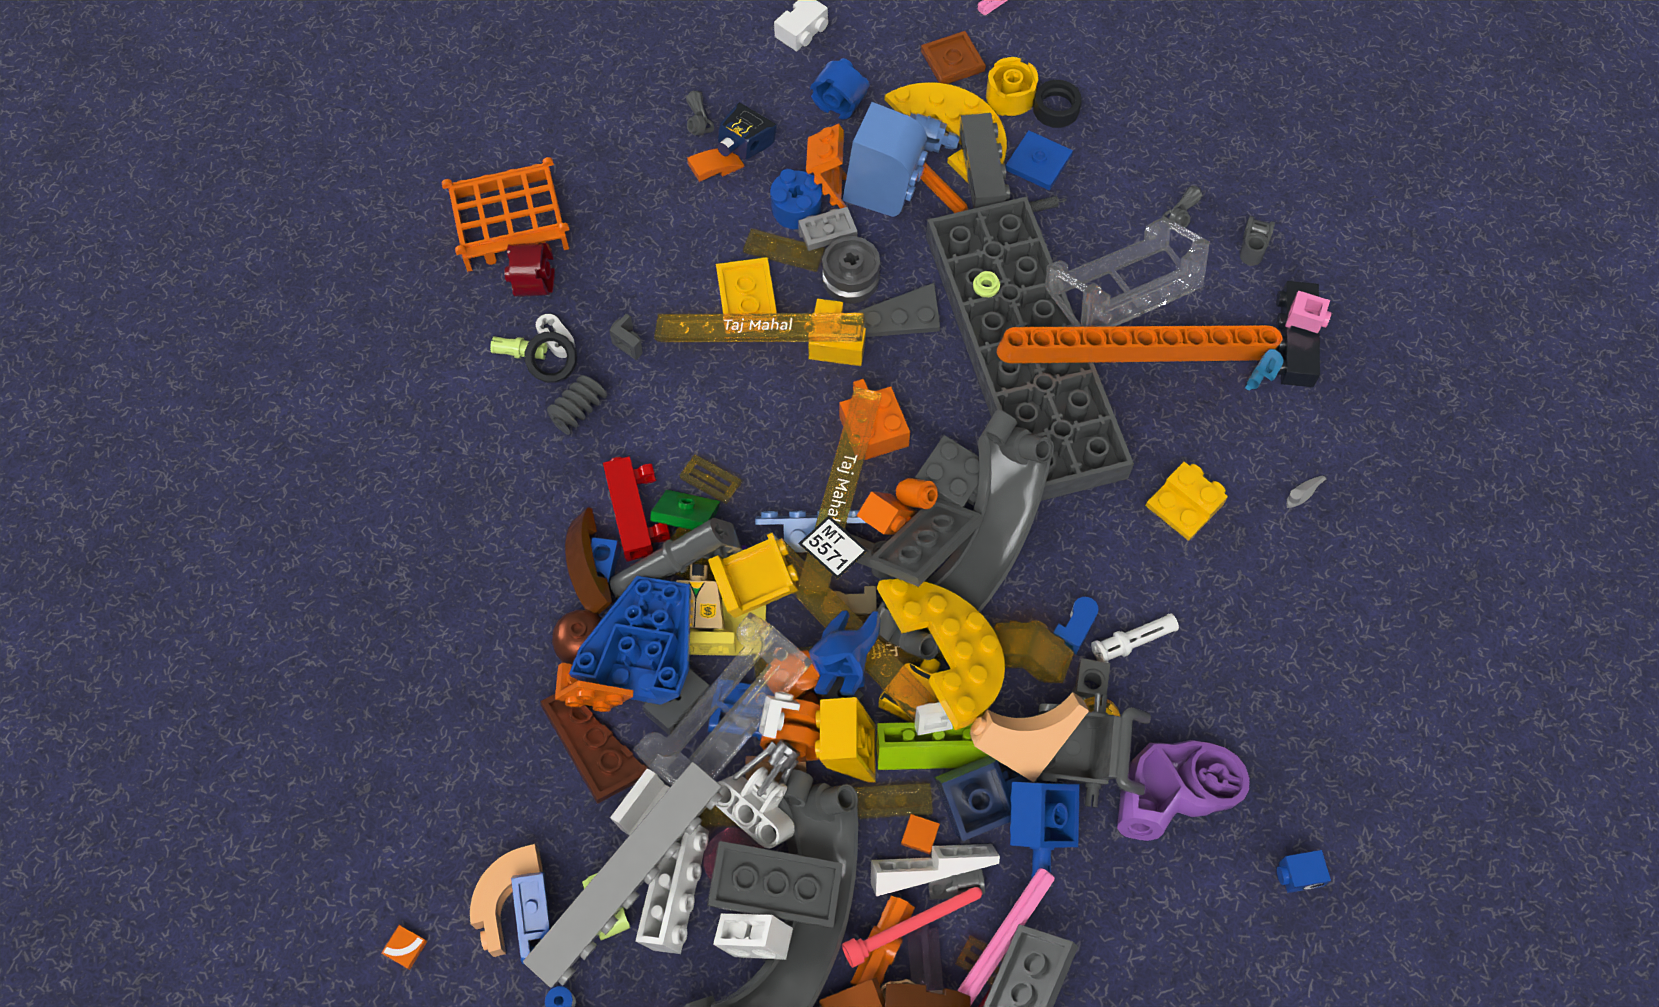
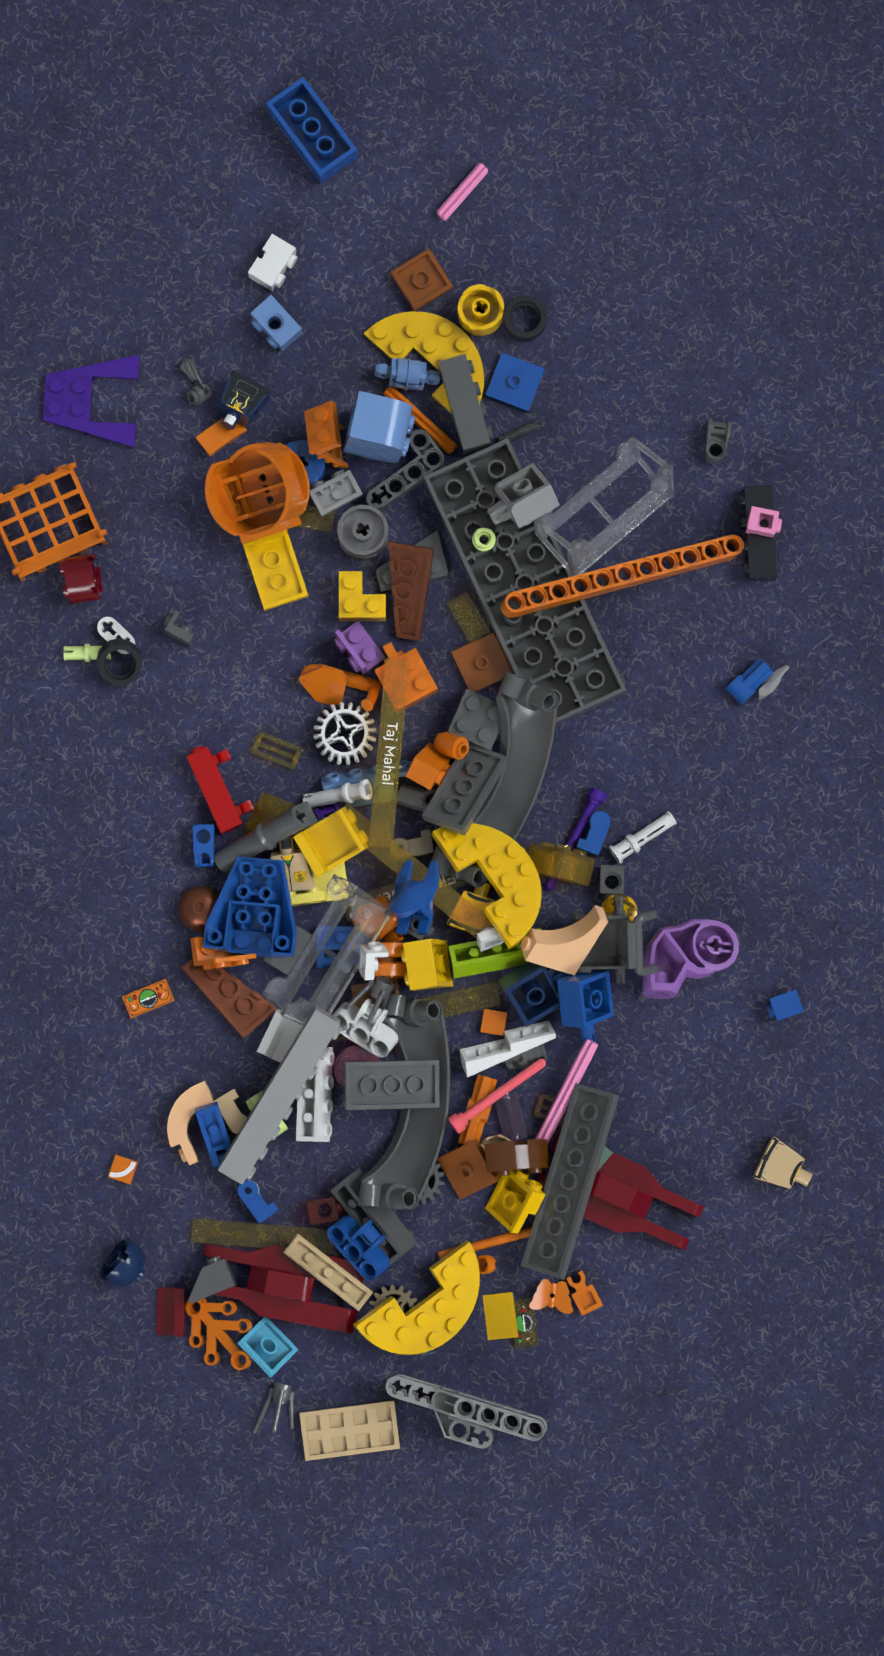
camera: 10 degrees left, 20 degrees up
(491, 735) = (148, 998): none -> tile
(559, 887) = (230, 1111): none -> tan leg
(565, 110) = (70, 393): none -> dark purple wing
(574, 402) = (149, 701): dark grey piece -> none
(590, 588) = (187, 846): reddish brown slope -> none
(684, 510) = (263, 786): green plate -> none
(721, 210) = (239, 497): none -> orange piece
(753, 936) = (381, 1122): white brick -> none
(760, 327) = (293, 607): clear yellow tile -> none
(783, 527) = (346, 793): none -> white pin
(784, 410) = (329, 683): none -> orange piece
(793, 72) = (269, 311): none -> medium blue brick
(813, 462) = (334, 738): none -> white gear
(823, 382) = (360, 647): none -> medium lavender bracket
(833, 547) = (391, 808): sticker -> none
(839, 88) = (322, 340): blue brick -> none
(896, 321) = (410, 583): none -> copper wing
(930, 204) = (402, 477): none -> dark grey beam
(955, 374) = (468, 617): none -> clear yellow tile
(962, 418) = (481, 663): none -> dark orange plate
(1039, 242) = (523, 497): none -> light grey hinge
(1081, 585) = (595, 798): none -> dark purple piece
(1187, 500) = (675, 707): yellow plate -> none
(1189, 199) = (647, 427): dark grey piece -> none
(1268, 367) = (732, 574): dark azure piece -> none
(1275, 487) = (747, 683): none -> blue piece

